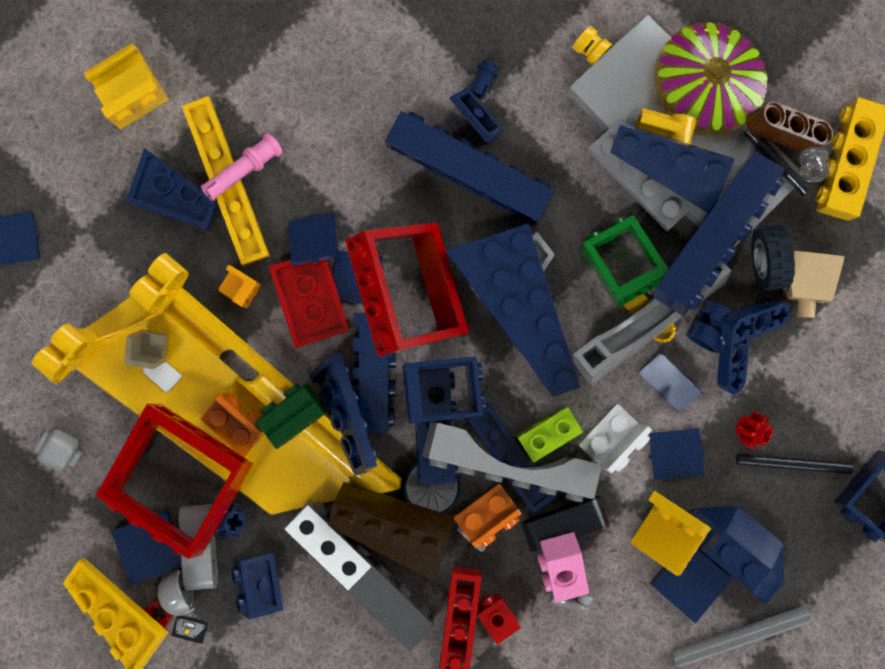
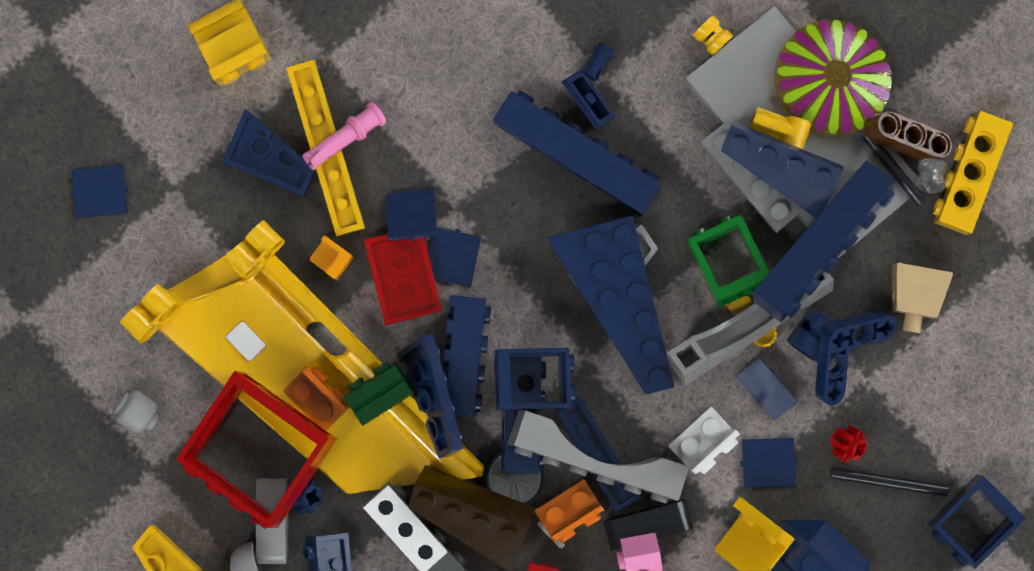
camera: 10 degrees right, 0 degrees up
(142, 555) = (217, 523): dark blue tile -> none
(146, 349) = (235, 315): dark tan panel -> none
(376, 296) = (536, 268): red window -> none
(549, 433) = (638, 431): lime brick -> none
(772, 257) = (878, 268): black wheel -> none

